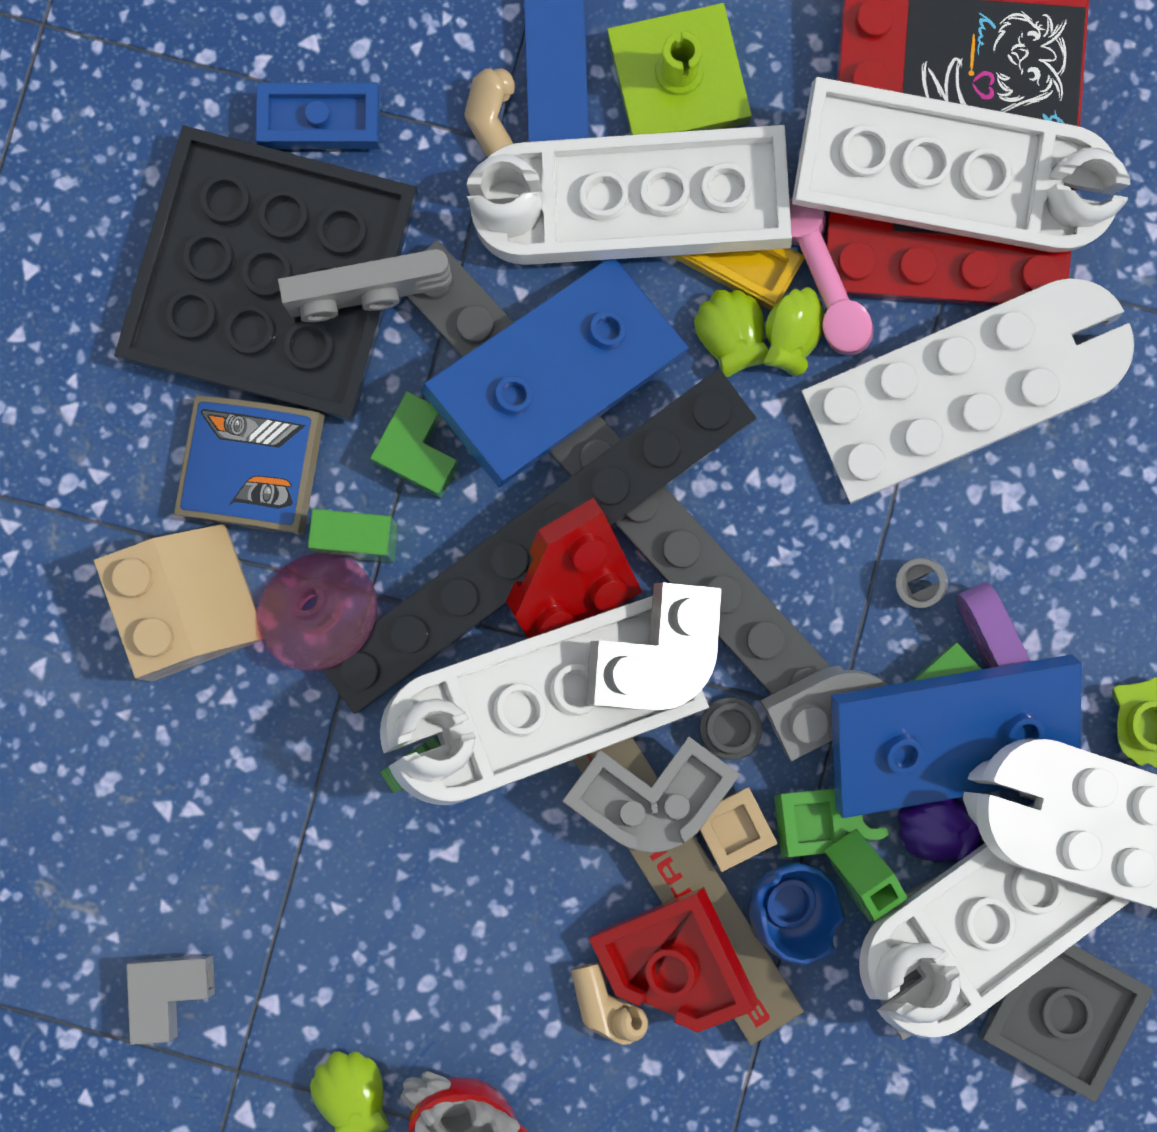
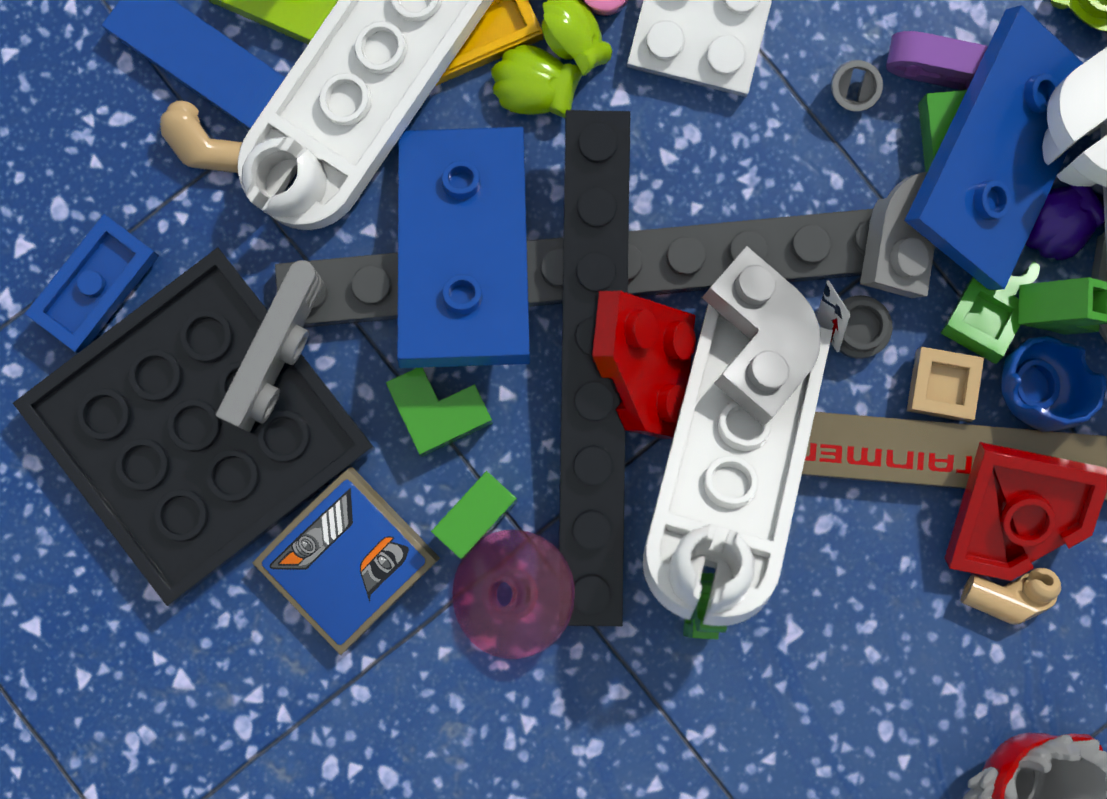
camera: 60 degrees left, 0 degrees up
(179, 600) = (418, 702): tan slope -> none
(655, 816) = (894, 433): light grey plate -> none
(720, 698) = (833, 315): none -> white sticker

